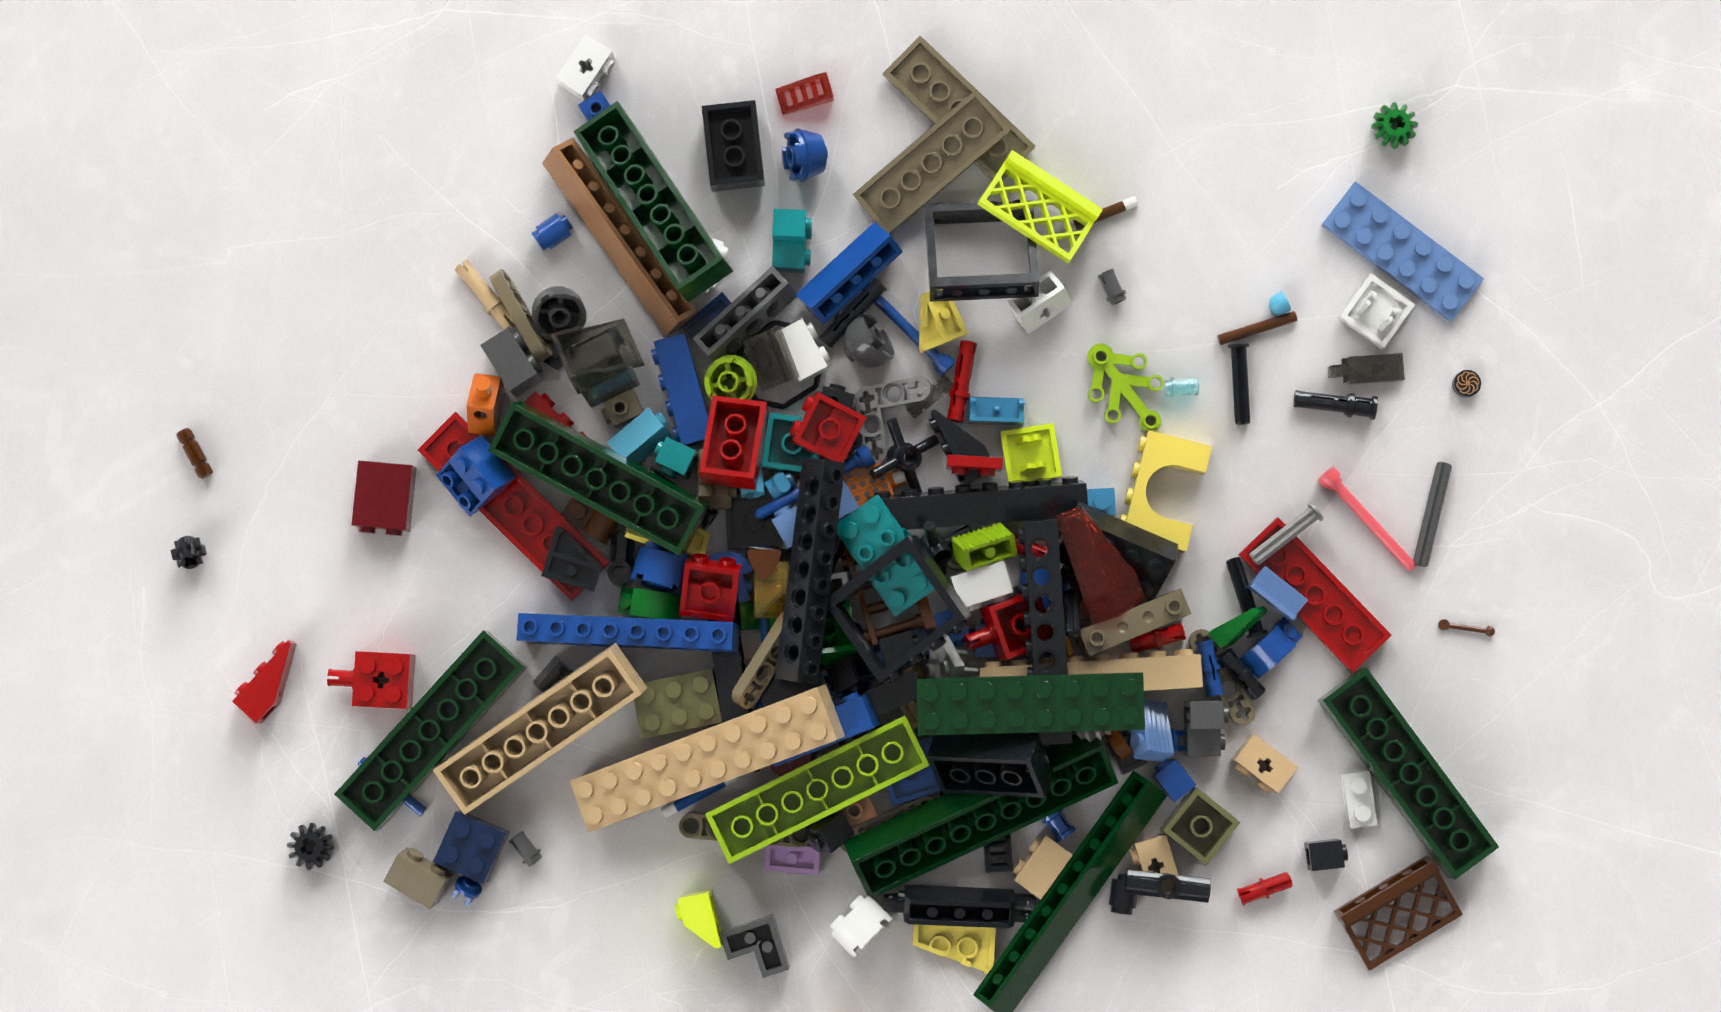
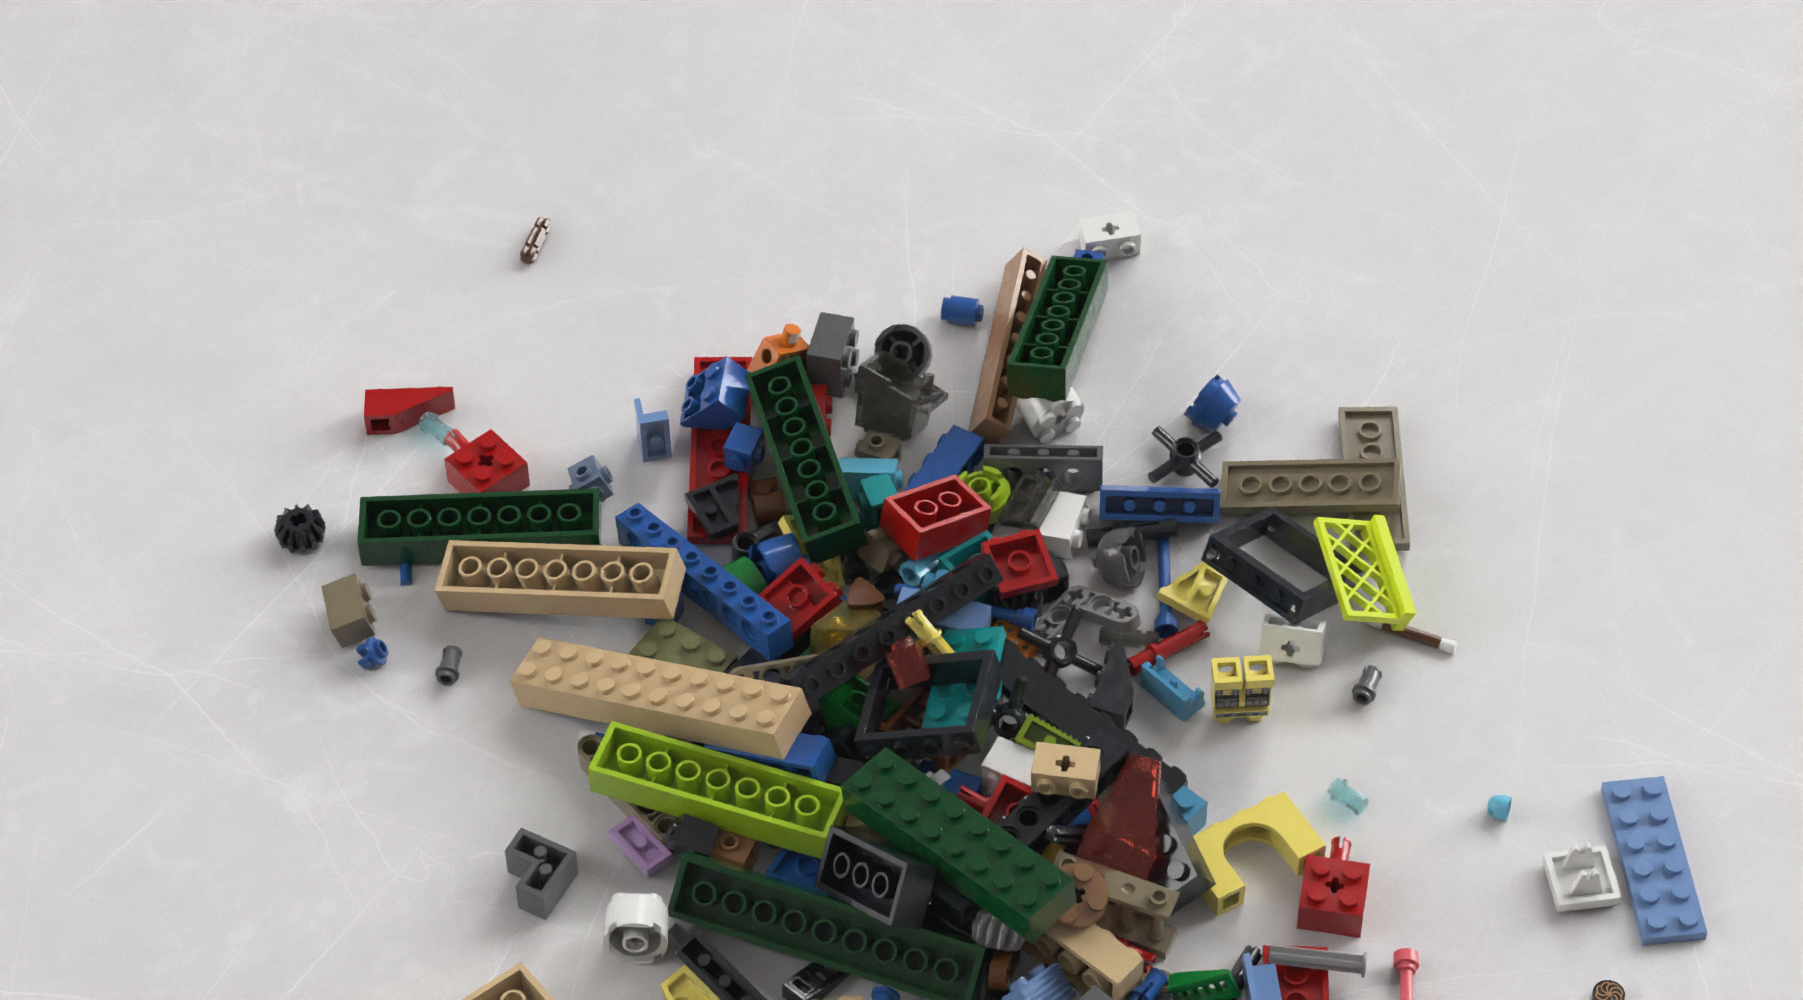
camera: 45 degrees right, 35 degrees down
(188, 552) = (446, 290): black gear -> none
(307, 675) = (433, 425): none -> clear light blue pin
(384, 497) = (634, 366): dark red brick -> none
(462, 622) = (591, 474): none -> sand blue brick
(465, 548) = (652, 433): none -> medium blue panel
(471, 846) = (412, 625): dark blue brick -> none
(493, 304) = (863, 317): tan pin -> none
(520, 315) = (882, 317): dark tan beam -> none
(539, 500) = (744, 448): none -> blue brick
(700, 916) = (527, 808): neon yellow slope -> none
(733, 145) = (1164, 360): black brick -> none
(789, 236) = (1140, 448): teal brick -> none
(806, 103) = (1275, 387): clear red slope -> none
(836, 214) = (1185, 456): none -> black bar
(847, 557) = (928, 634): none -> light yellow axle
(860, 597) = (908, 662): none -> clear red slope
(985, 465) = (1109, 684): red plate -> none
(1026, 586) = (1065, 770): none -> tan brick
(1031, 453) = (1171, 734): neon yellow plate -> none
(1055, 380) = (1241, 693): none -> light yellow hips
(1118, 641) = (1093, 901): none -> medium nougat plate
(1122, 384) = (1299, 754): lime plant -> none
(1240, 383) = (1404, 833): black axle -> none
(1249, 457) = (1333, 892): none -> red brick
(1256, 328) = (1462, 811): reddish brown bar -> none
(1348, 404) = (1481, 923): black pin -> none
(1369, 369) = (1529, 916): clear smoke hinge -> none
(1404, 126) = (1741, 763): green gear -> none

